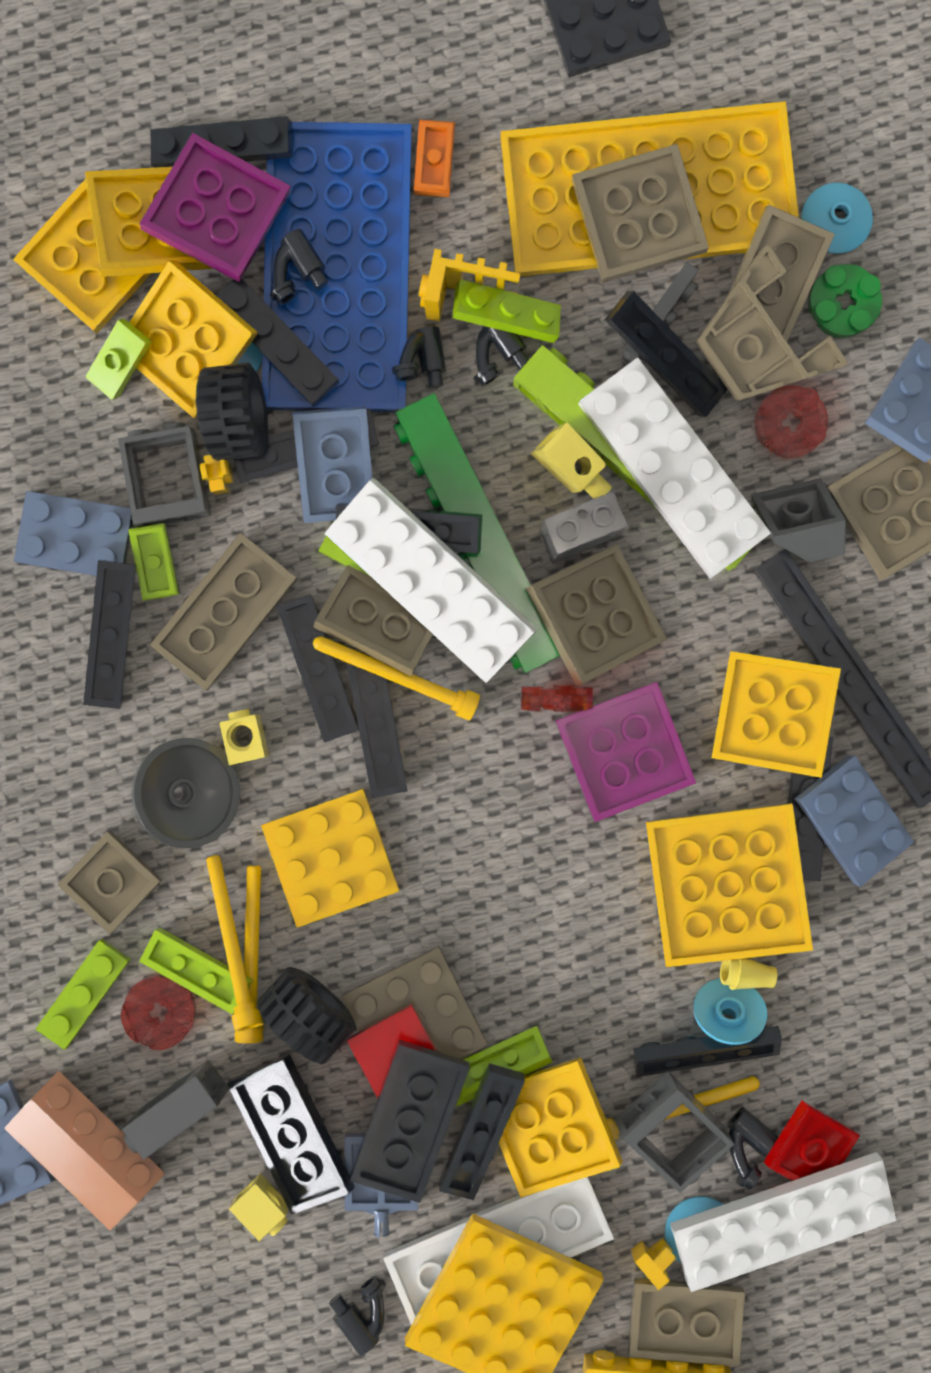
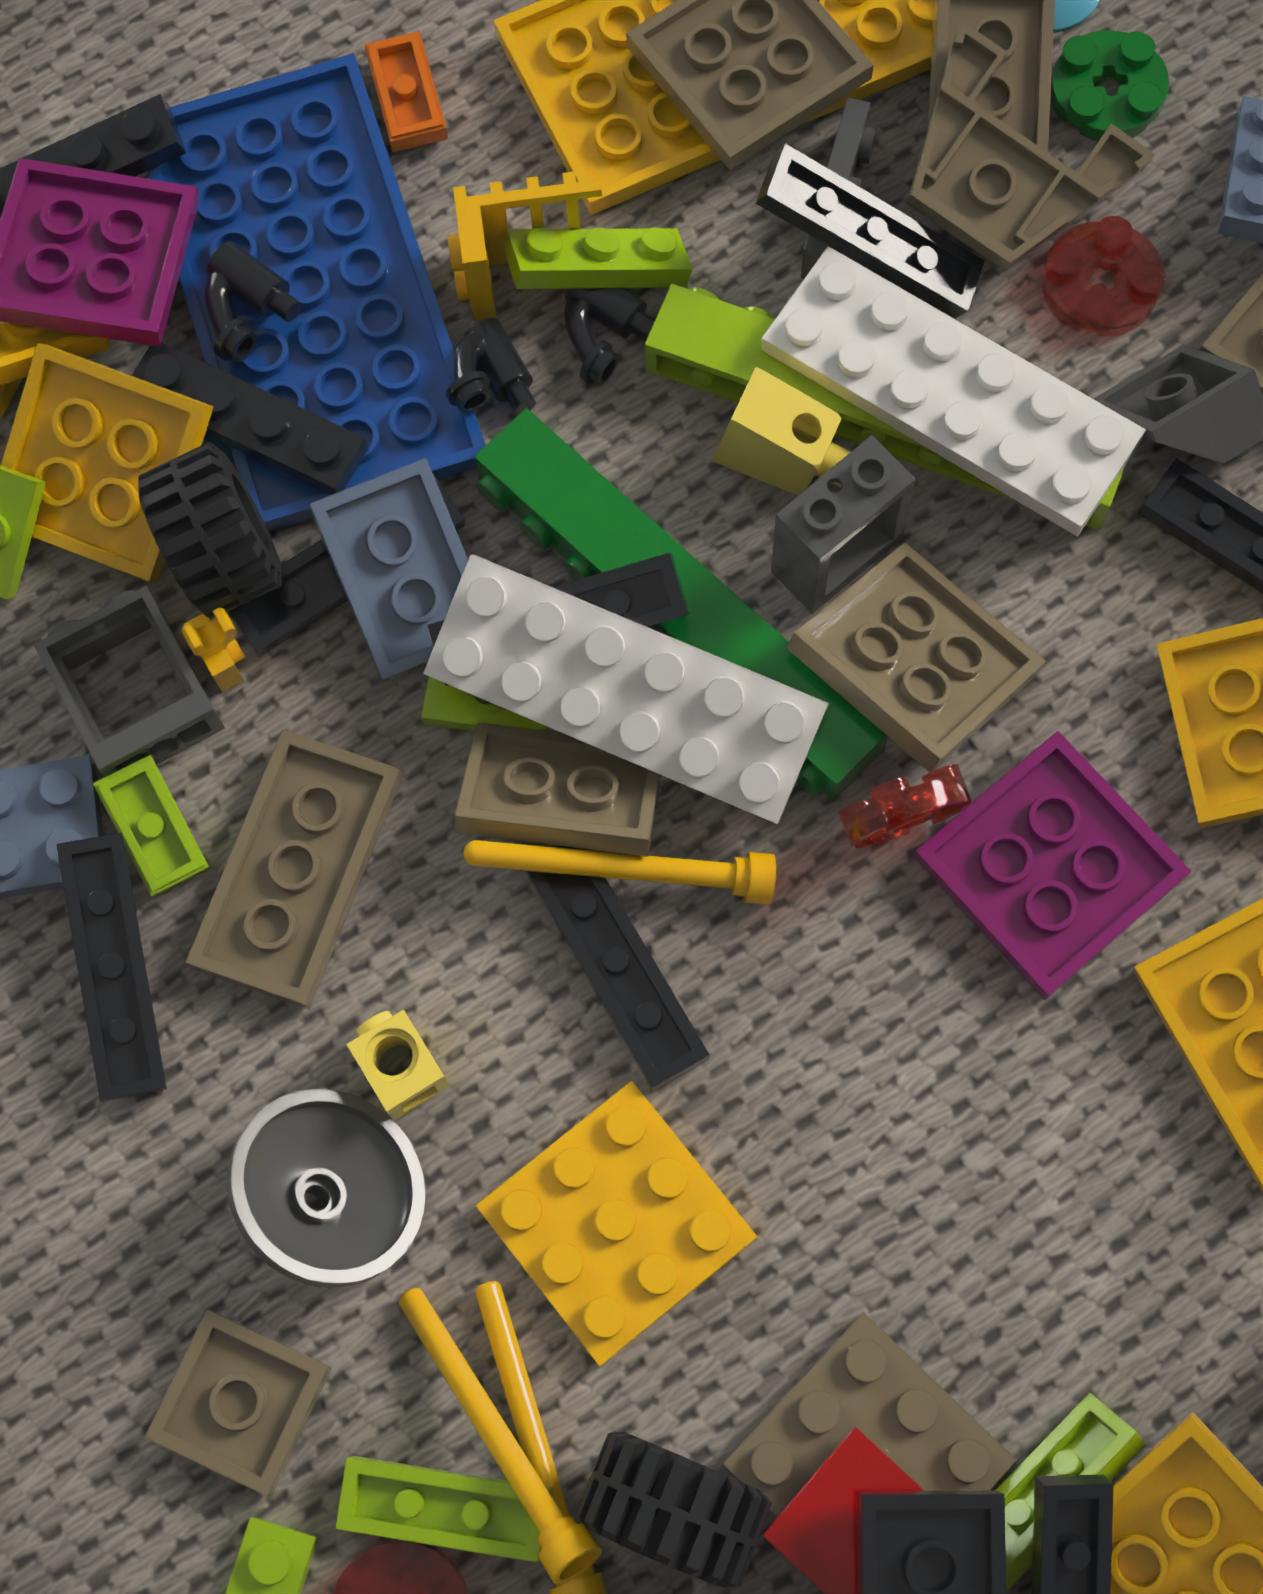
camera: 15 degrees left, 15 degrees down
(317, 670) = (486, 909): black plate -> none

